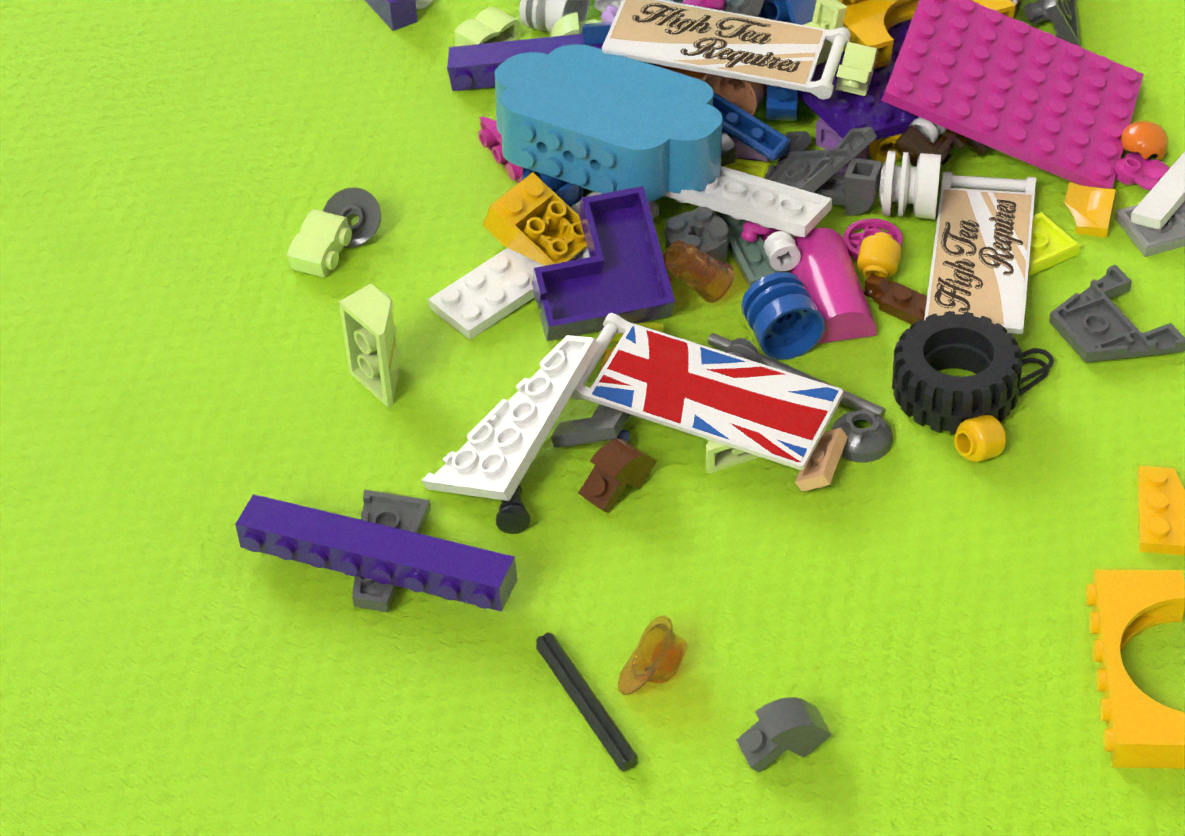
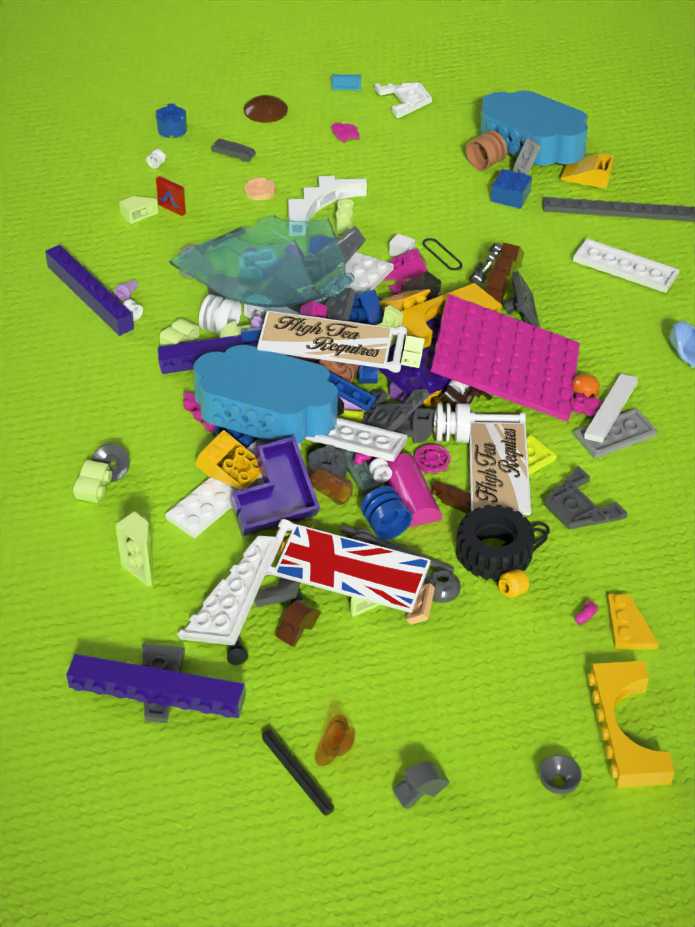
camera: 10 degrees left, 0 degrees up
(879, 255) = (438, 469): yellow head -> none
(1018, 726) = (561, 767): none -> dark grey piece
(1090, 208) = (560, 430): yellow slope -> none
(1104, 488) = (589, 611): none -> dark pink arm

